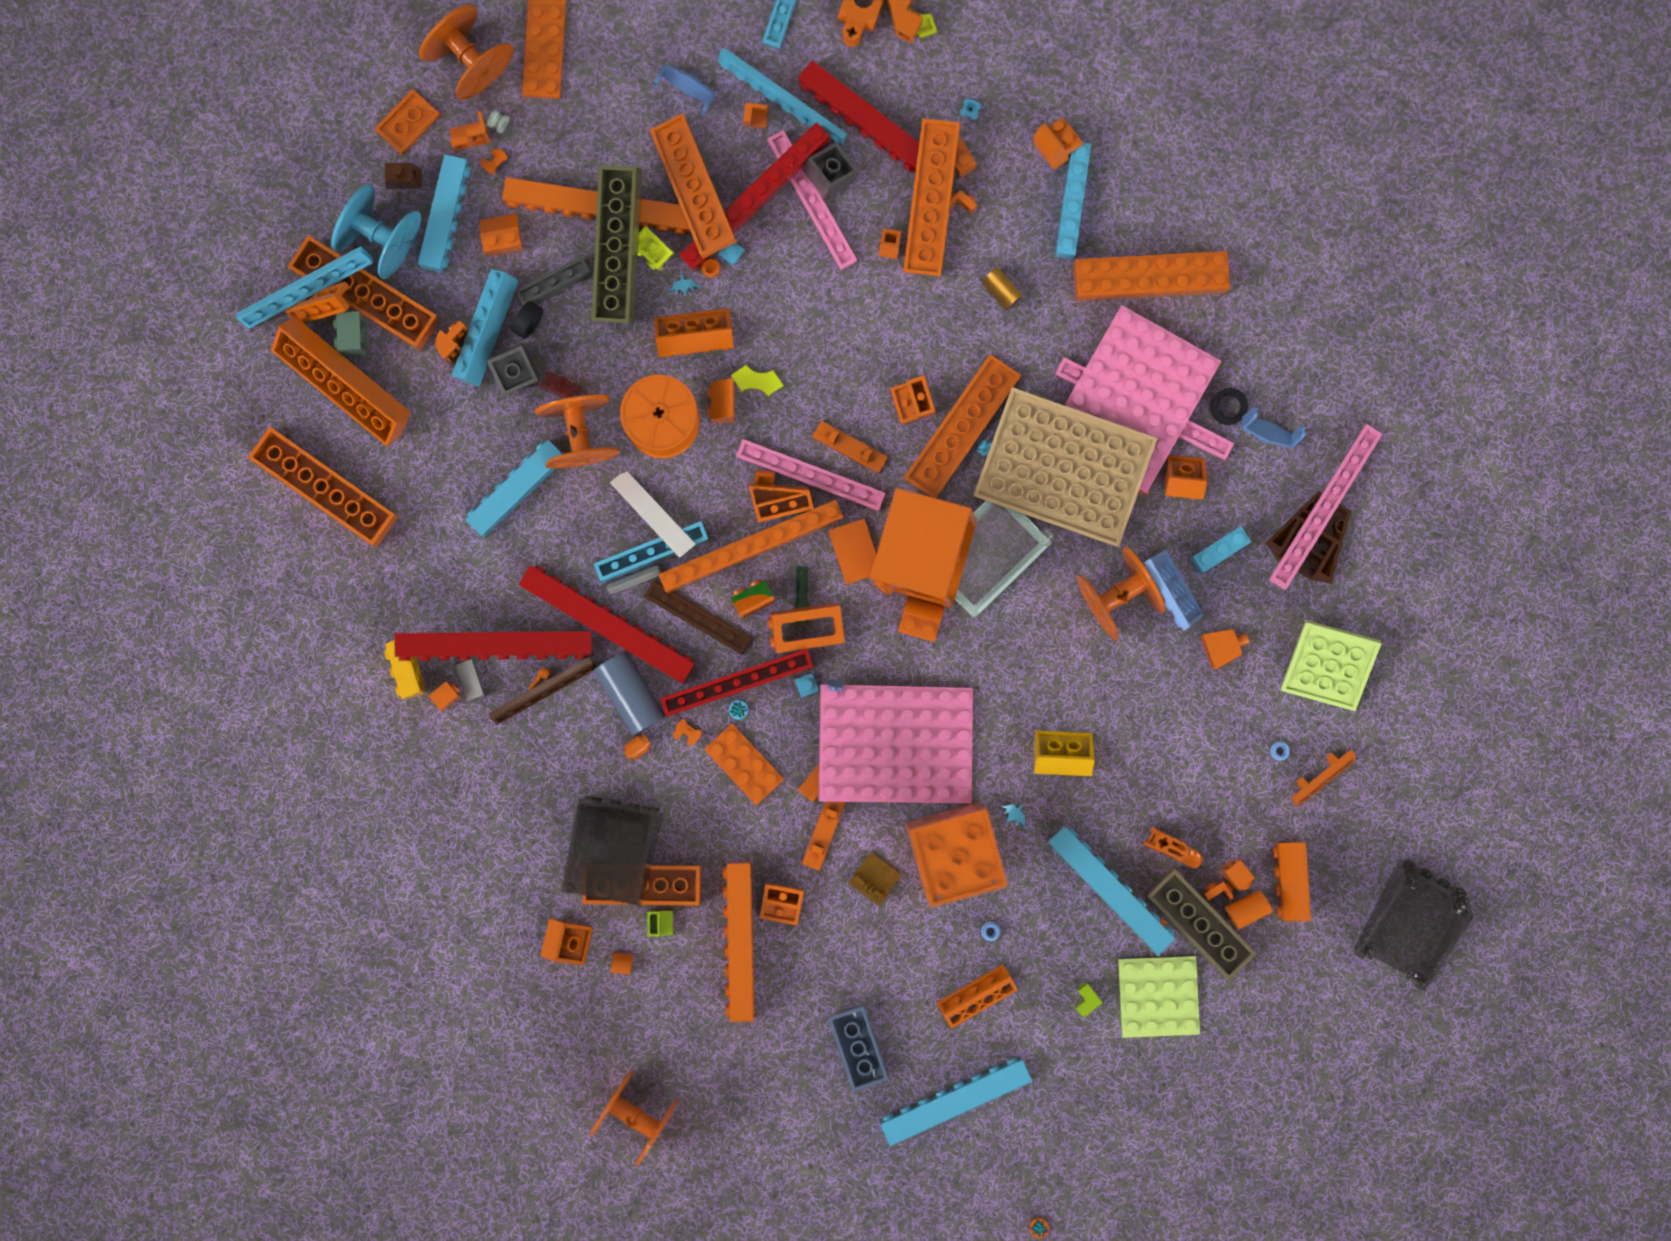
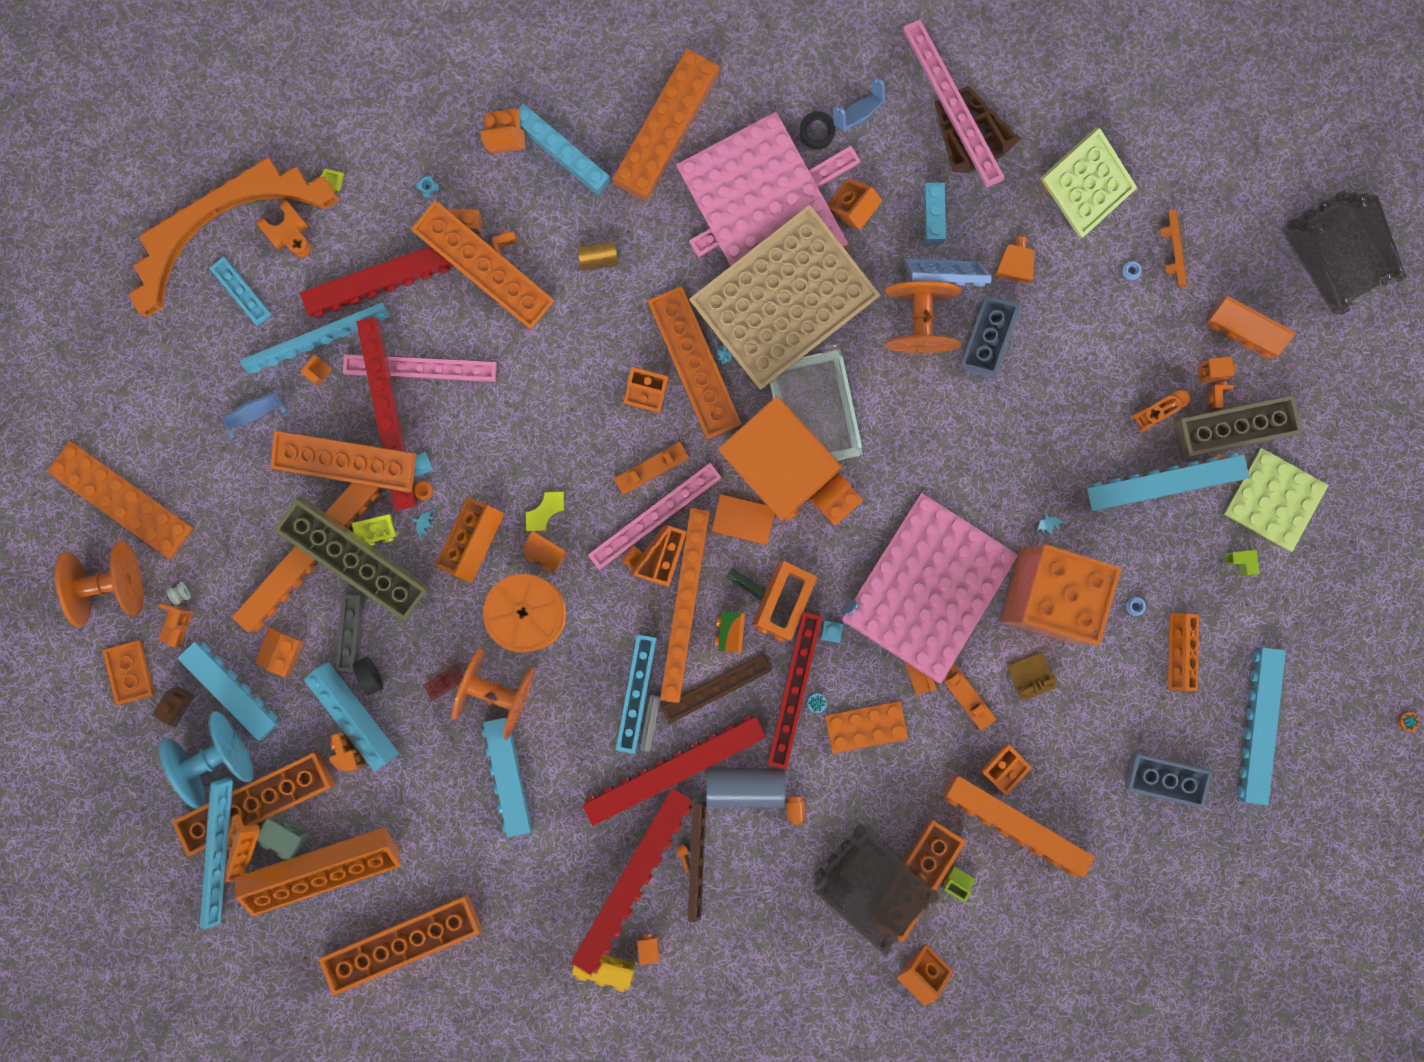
camera: 55 degrees left, 0 degrees up
(470, 680) = (648, 918): light grey slope -> none
(499, 157) = (214, 624): orange piece -> none
(513, 369) = (403, 714): flat silver brick -> none
(622, 963) = (973, 938): orange brick -> none
(635, 1118) = (1116, 1011): orange piece -> none
(652, 513) = (604, 672): white sticker -> none
(693, 734) = (803, 759): orange piece -> none
(830, 170) = (404, 336): flat silver brick -> none
(889, 243) = (499, 325): orange brick -> none
(1063, 753) = (1024, 450): yellow slope -> none
(1143, 663) = (990, 337): none -> sand blue brick
(1248, 909) = (1252, 379): orange brick -> none

